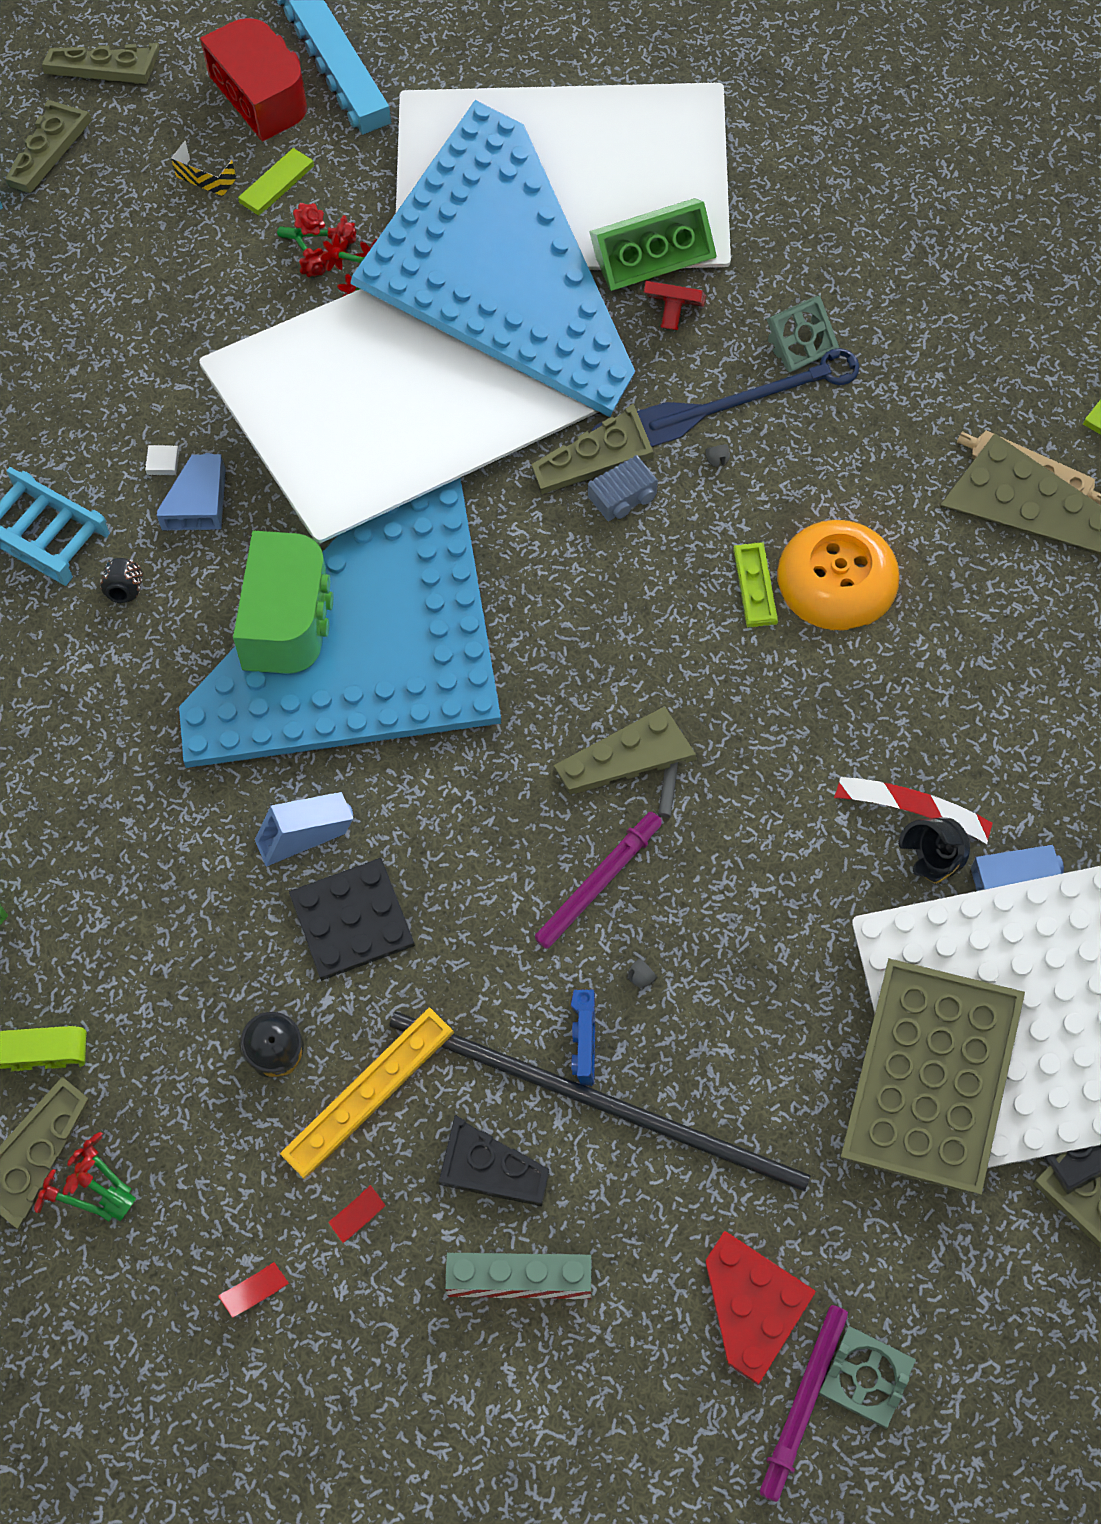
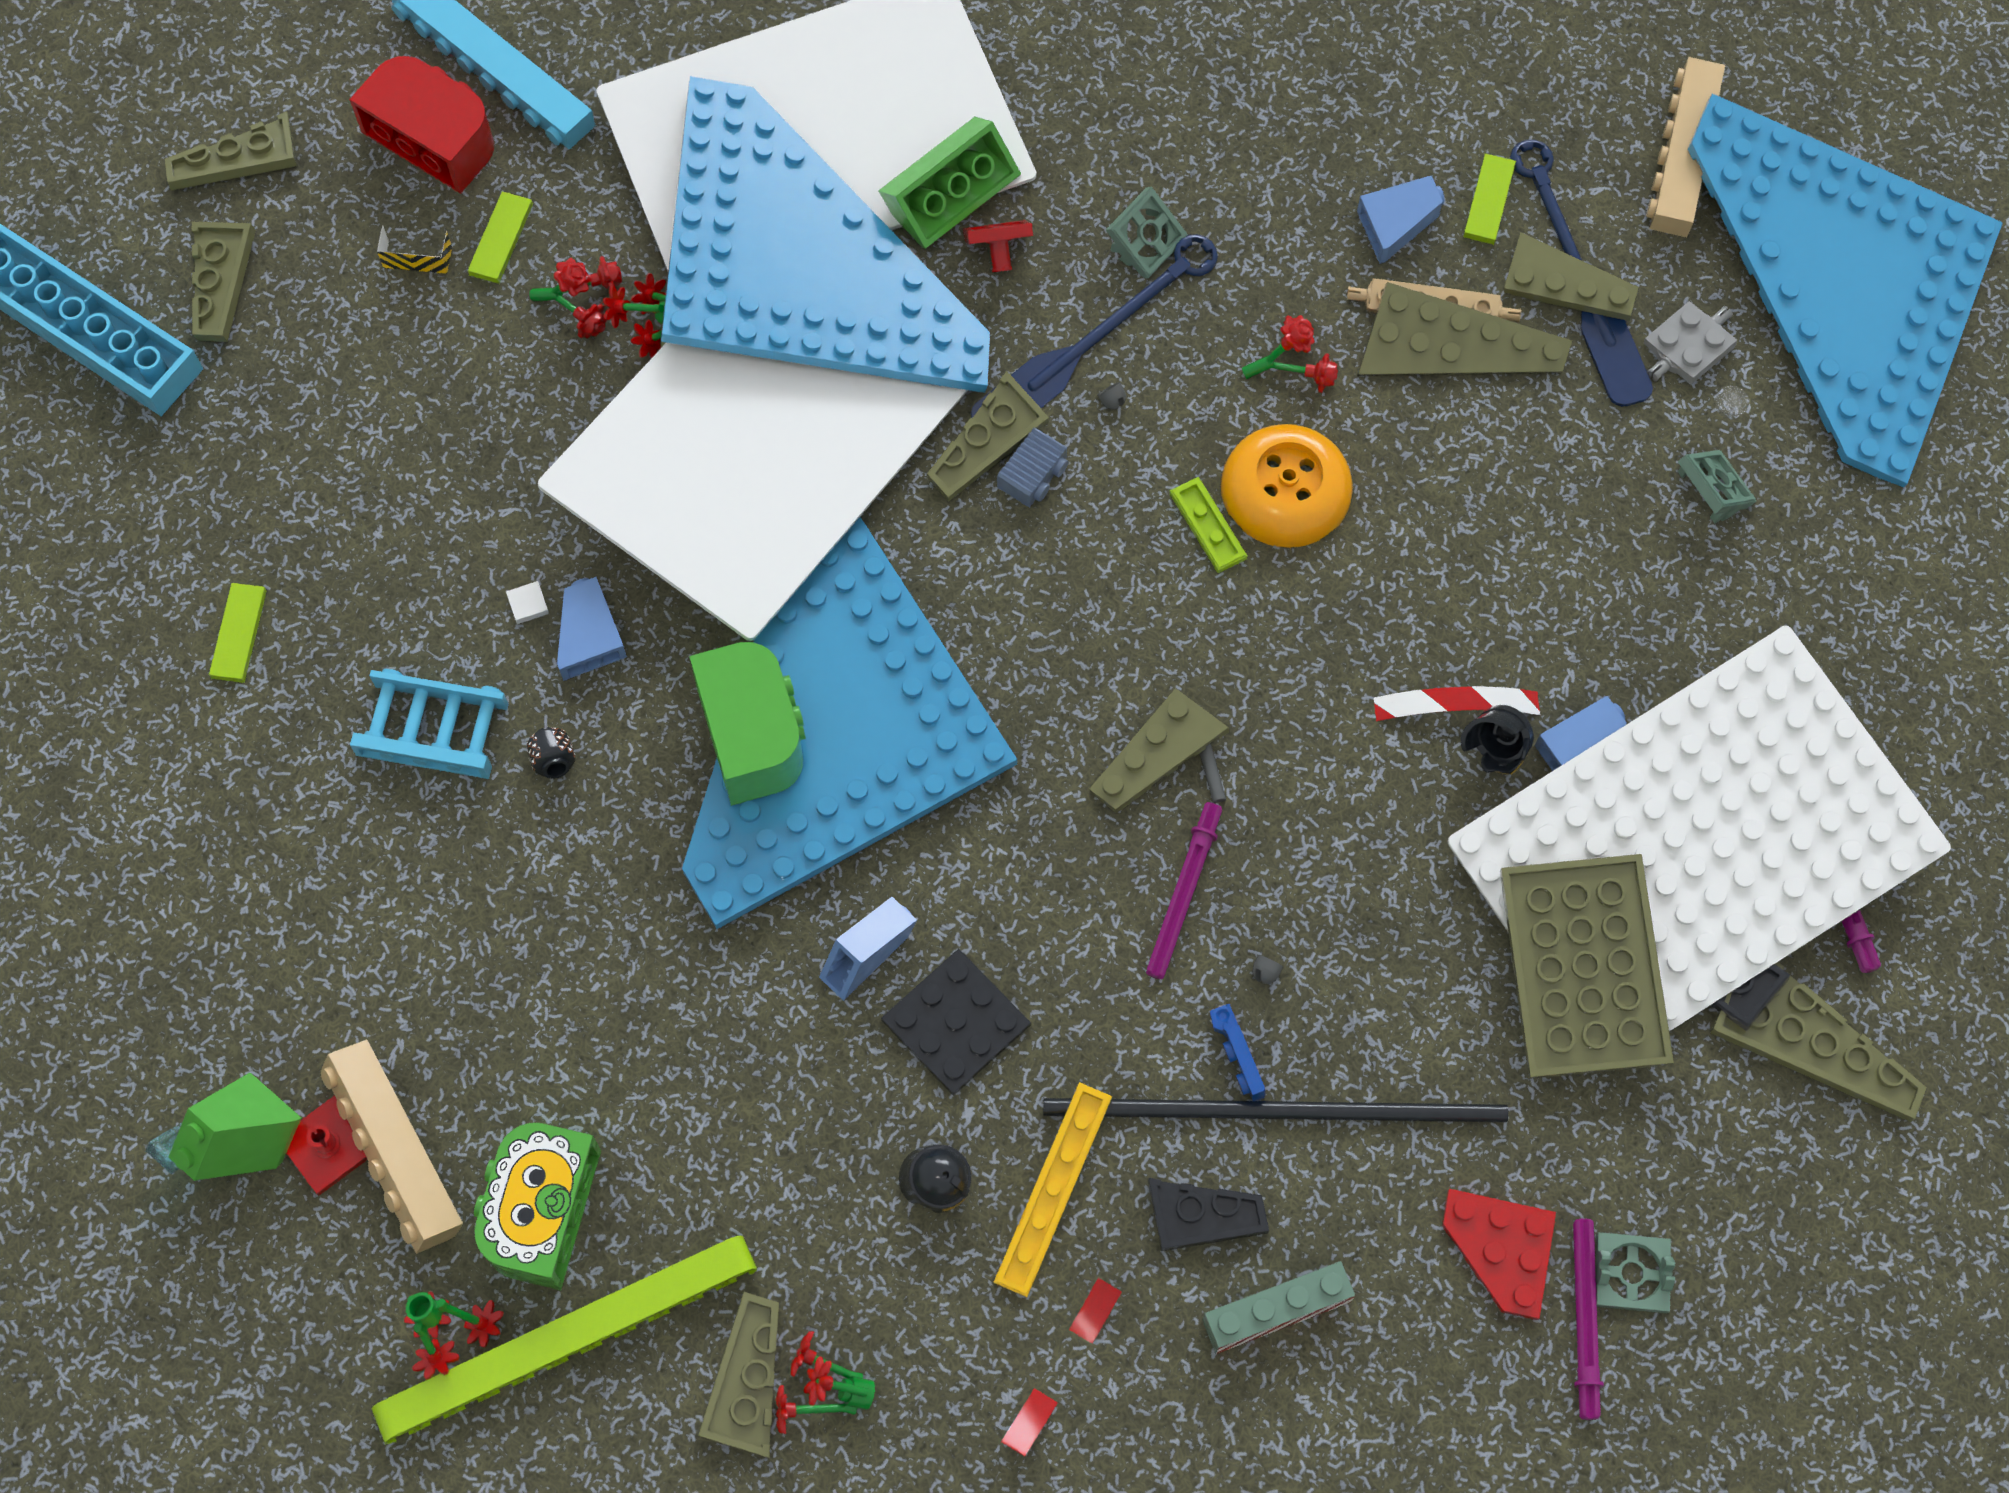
camera: 25 degrees left, 5 degrees up
(892, 450) = (1299, 336): none -> red plant
(1032, 386) = (1399, 214): none -> medium blue slope

